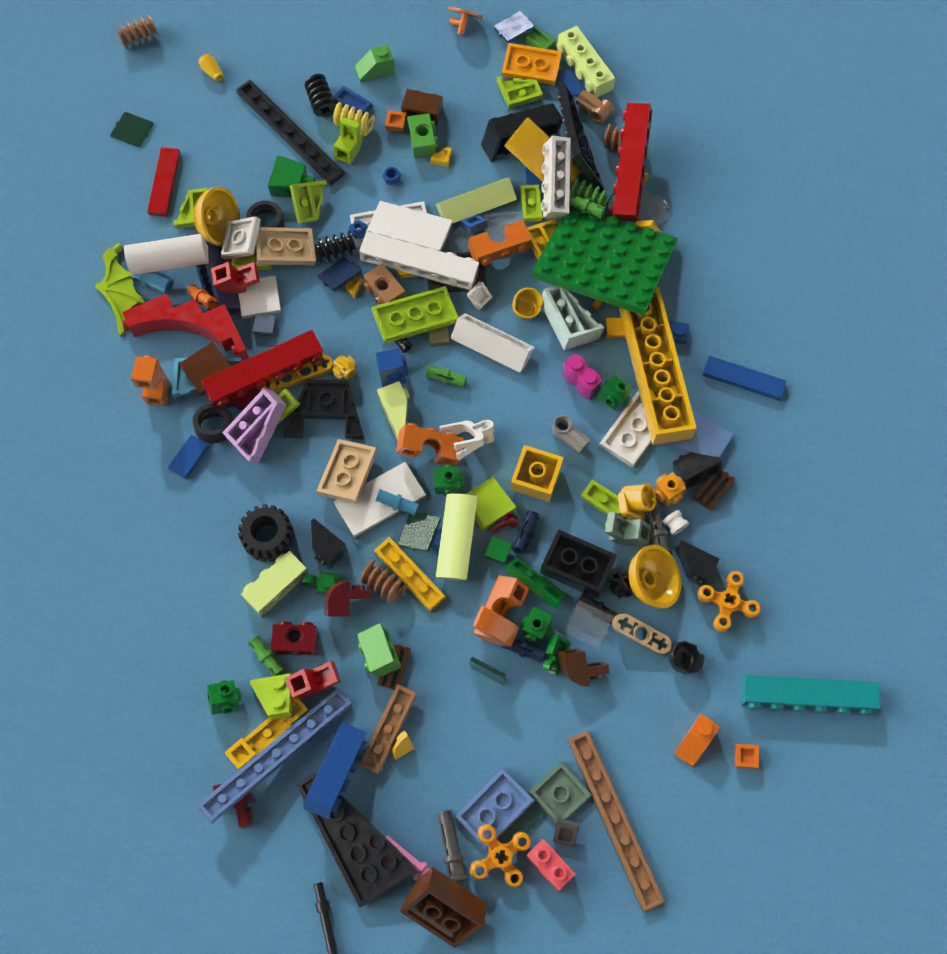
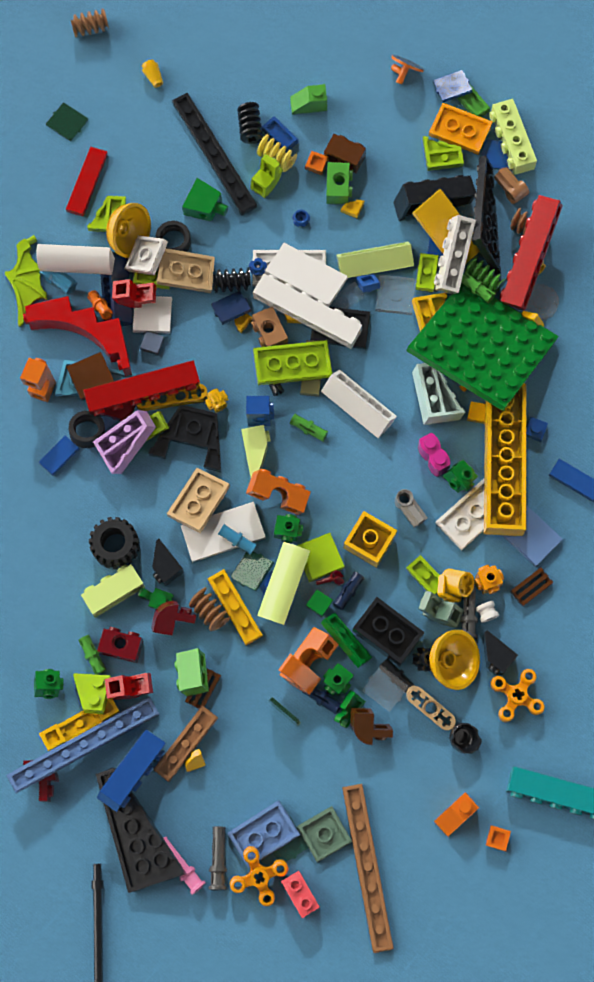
camera: 15 degrees right, 5 degrees up
(307, 200) = (216, 228): lime wing -> none
(444, 908) = (200, 910): reddish brown slope -> none
(479, 295) = (356, 355): white tile -> none
(480, 431) = (329, 489): white piece -> none
(486, 250) = (371, 313): orange arch -> none
(527, 303) = (399, 373): yellow hair -> none
(566, 832) = (321, 869): dark grey tile -> none
(696, 468) = (518, 565): black slope -> none

